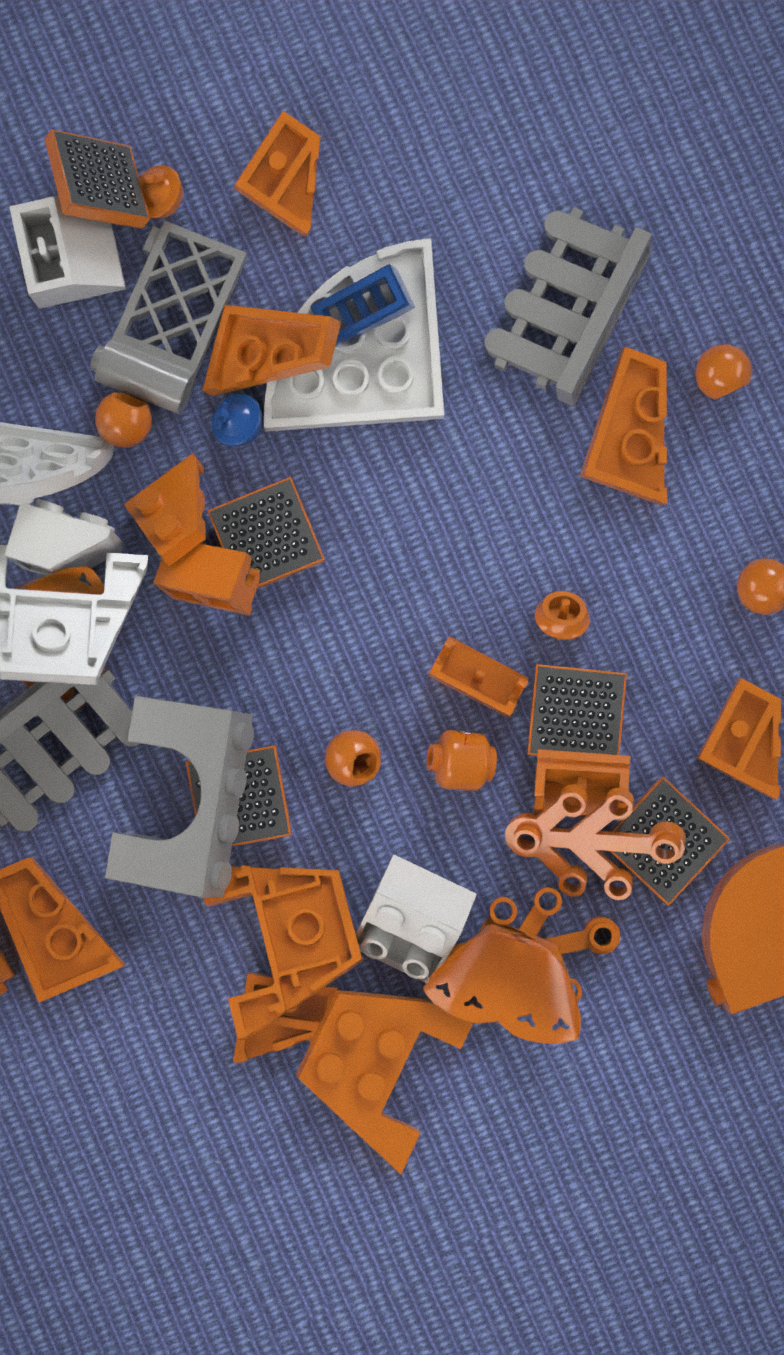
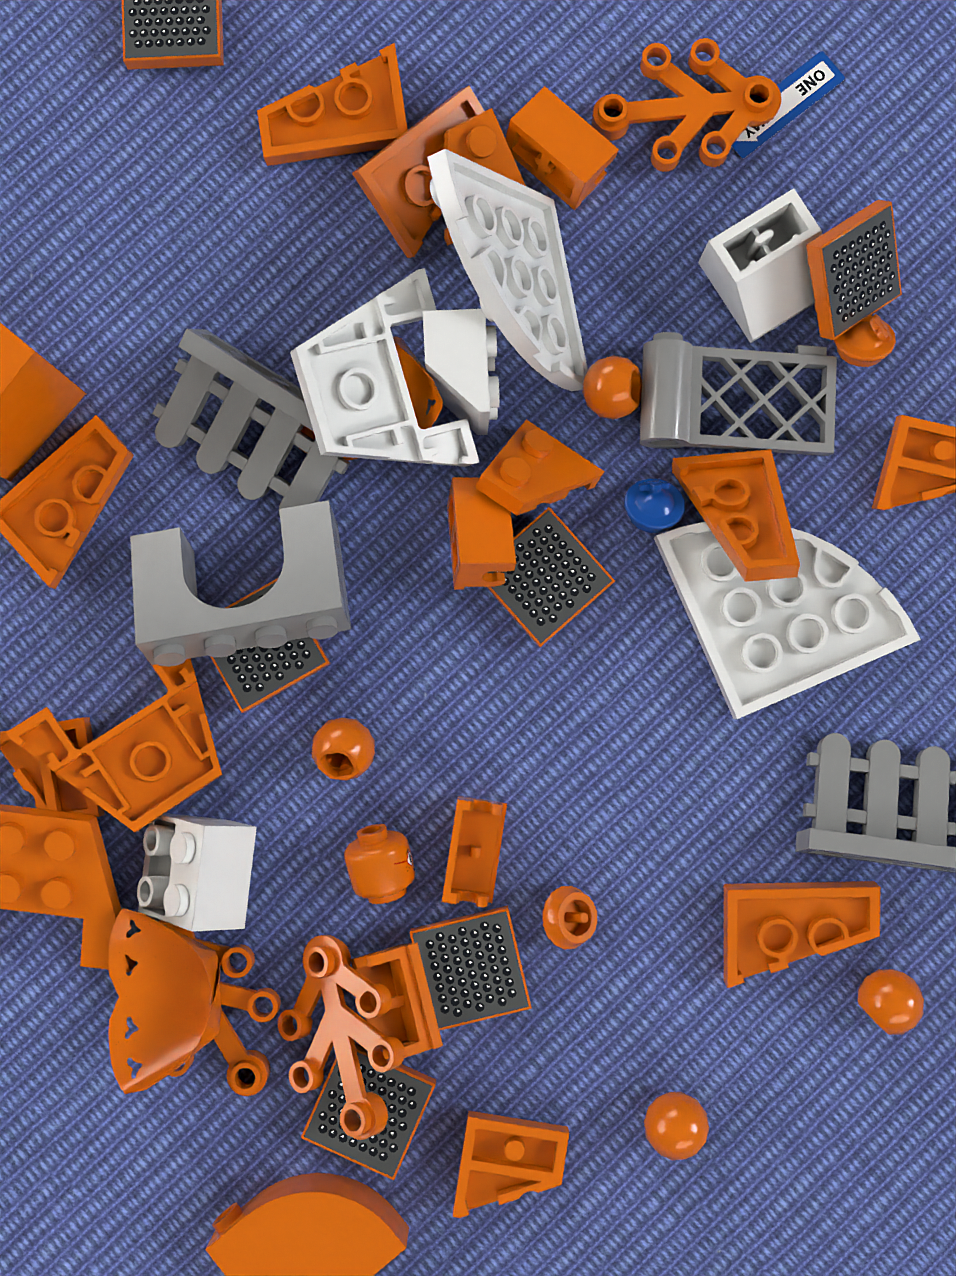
camera: 70 degrees right, 0 degrees up
(355, 291) = (850, 594): blue slope -> none

